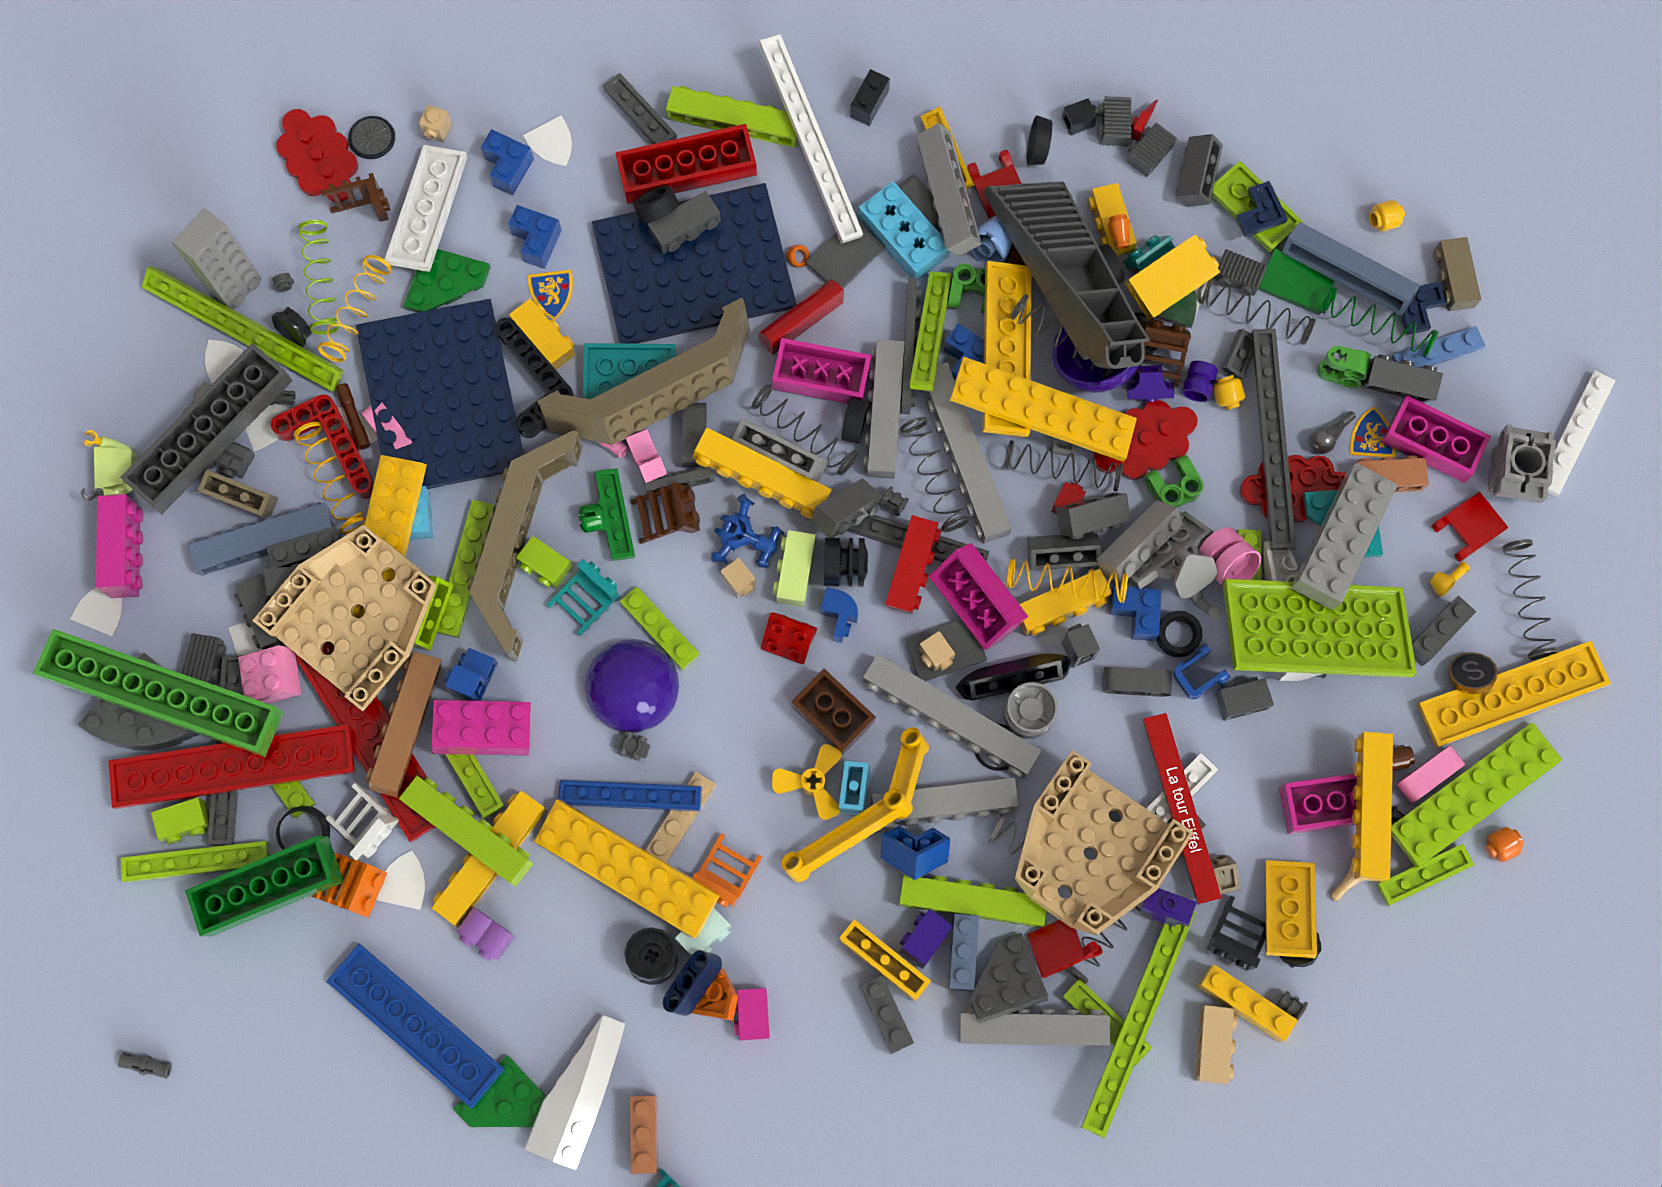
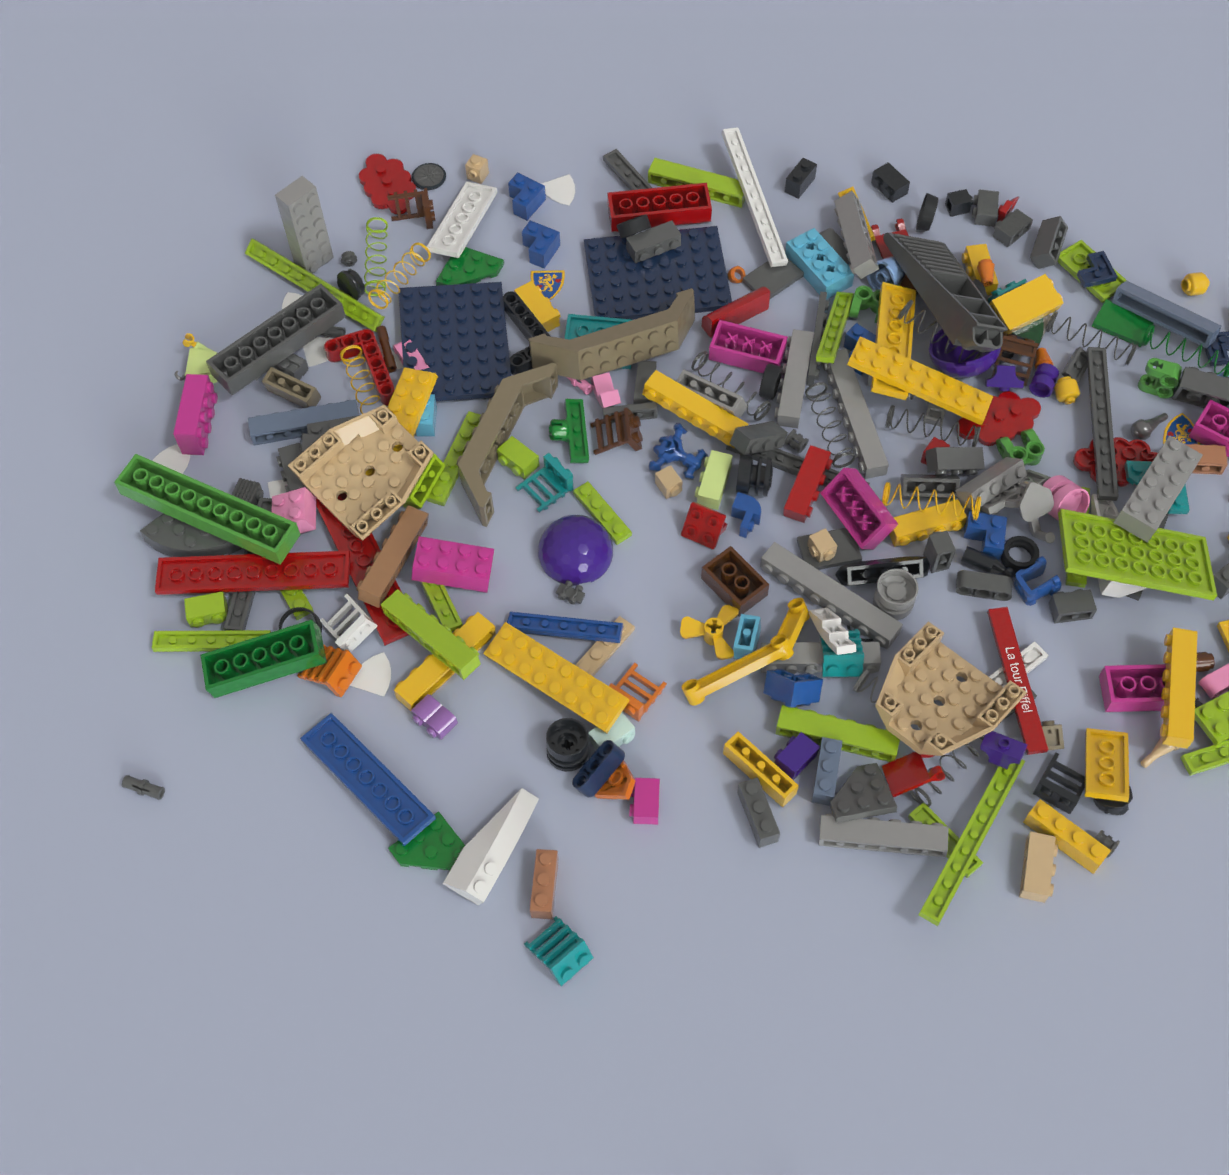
camera: 10 degrees right, 15 degrees down
(471, 675) = (450, 526): blue brick -> none
(956, 775) = (831, 631): none -> white slope
(970, 809) = (844, 664): none -> teal plate
(988, 92) = (890, 182): none -> black brick
(1138, 650) = (985, 562): none -> black wheel
(1197, 348) = (1042, 357): none -> orange cone
(1240, 272) = (1079, 311): dark grey brick -> none

